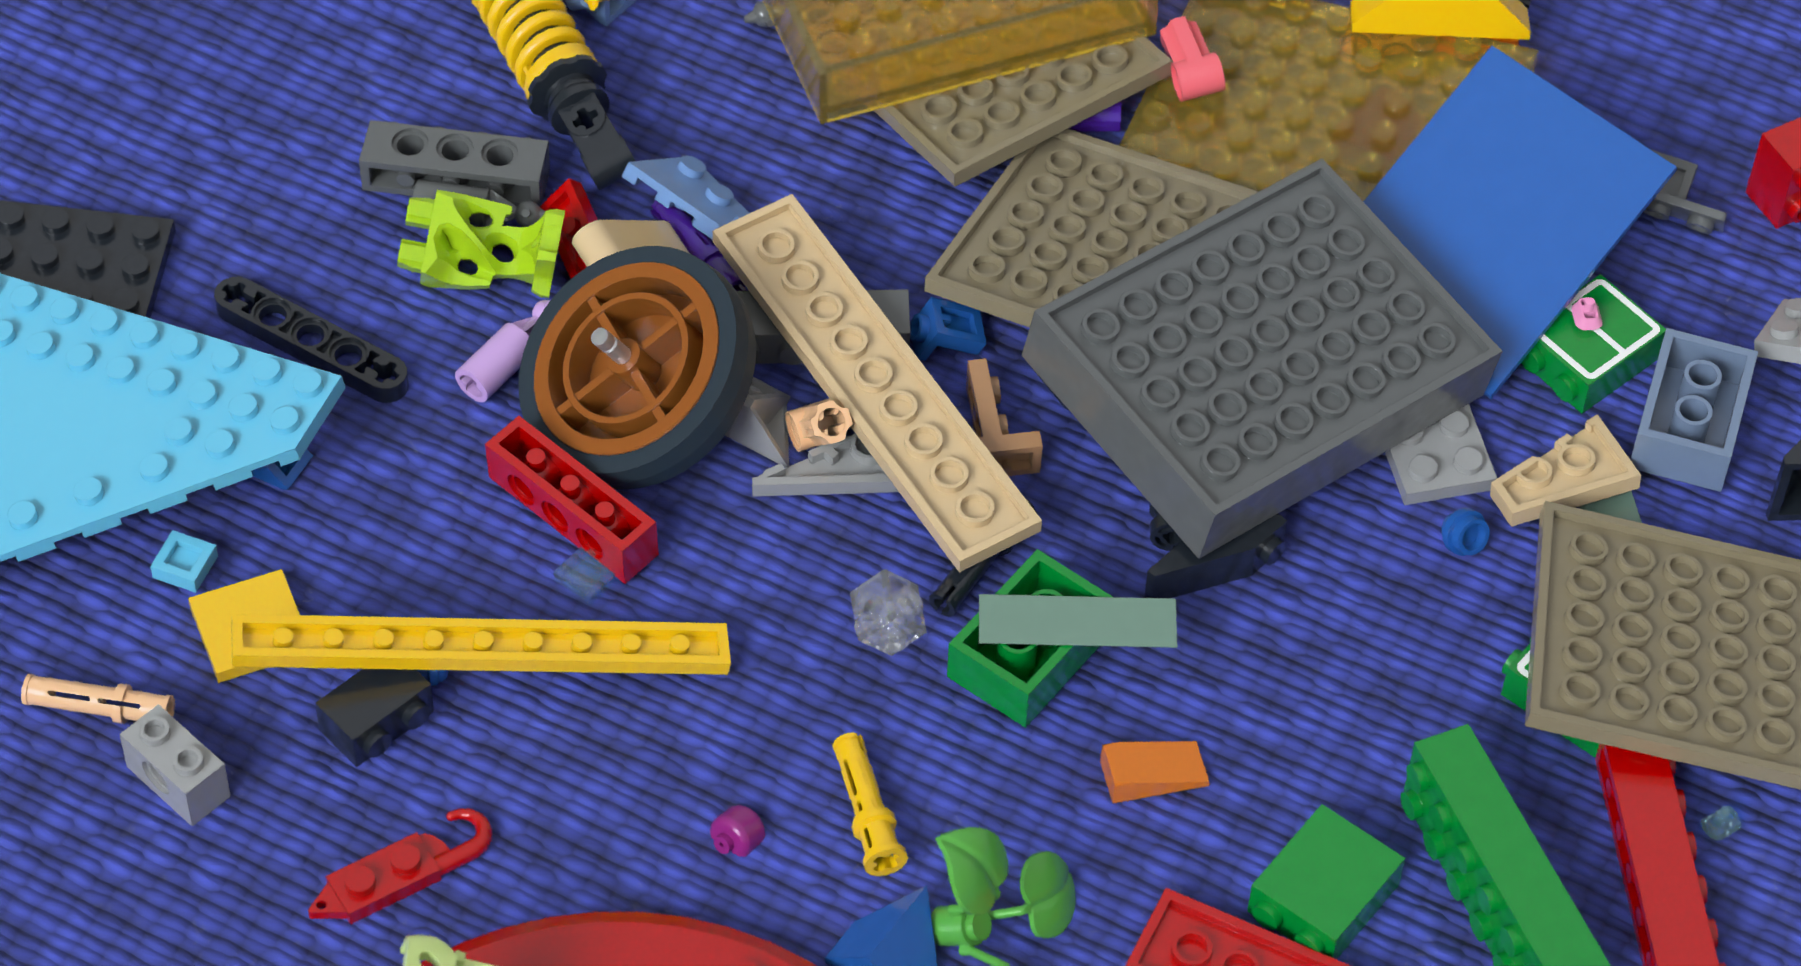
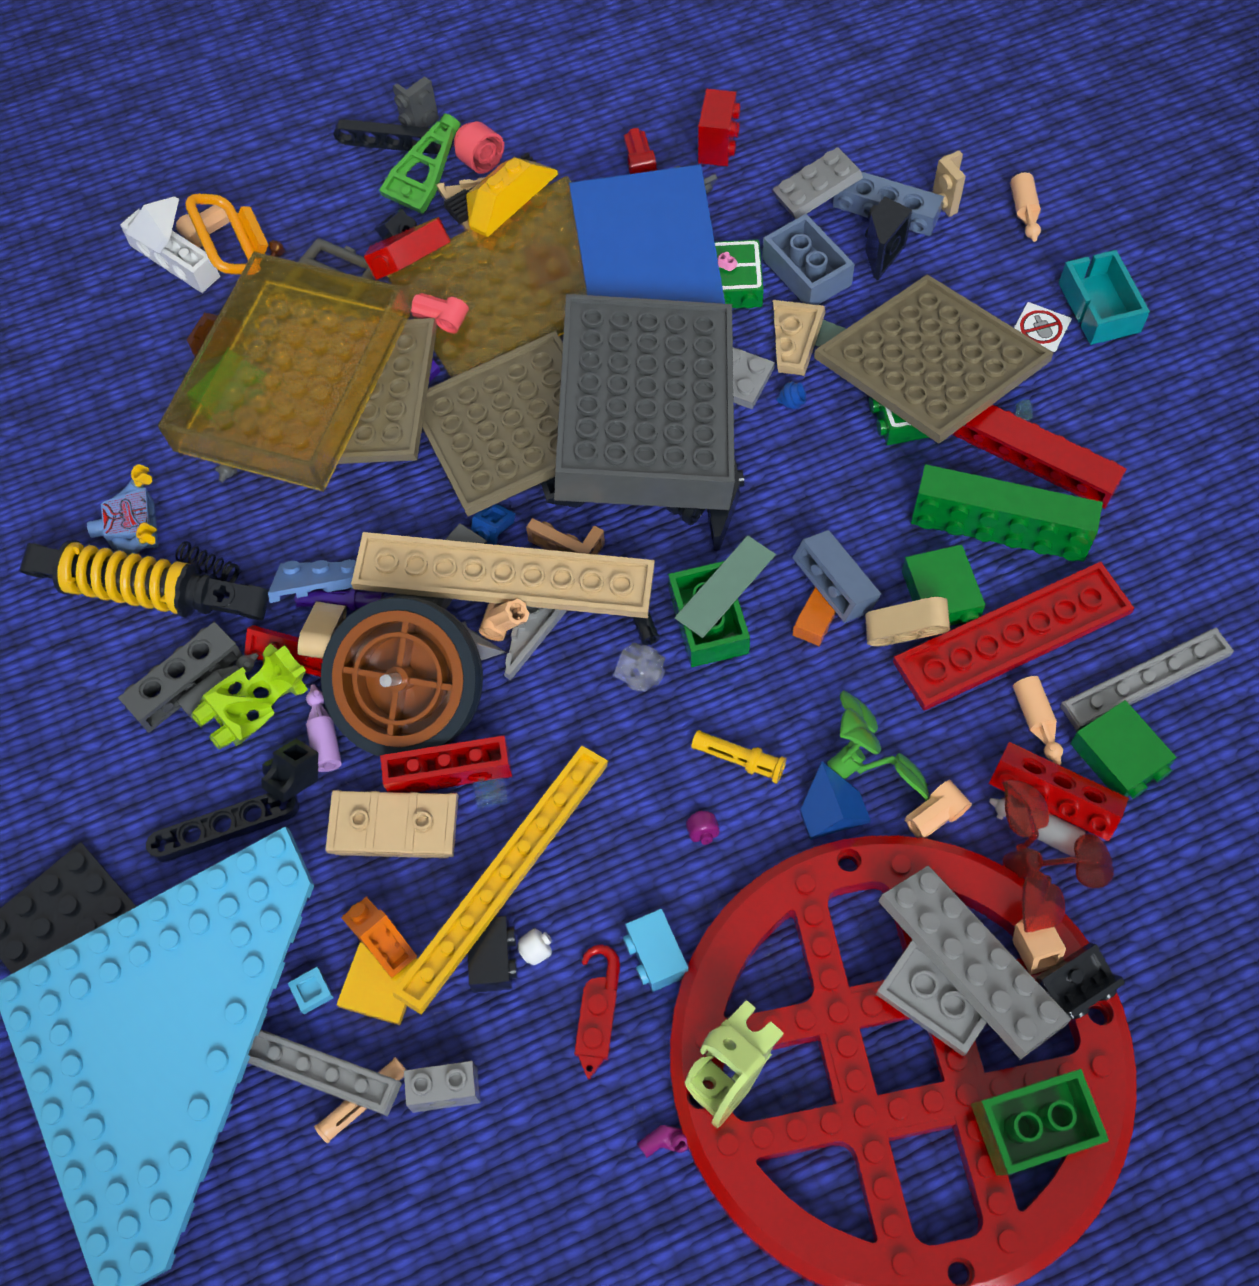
camera: 45 degrees left, 10 degrees up
(95, 631) = (324, 1072): none -> light grey tile
(297, 569) = (379, 936): none -> orange bracket
(428, 349) = (290, 770): none -> black brick
(428, 753) = (535, 946): none -> white piece
(453, 499) = (392, 824): none -> tan container
(525, 874) = (656, 950): none -> medium azure brick
(630, 105) = (225, 571): none -> black piece
(1223, 863) = (907, 621): none -> tan beam
(1225, 749) = (836, 576): none -> sand blue brick
(1675, 119) = (639, 154): none -> red piece

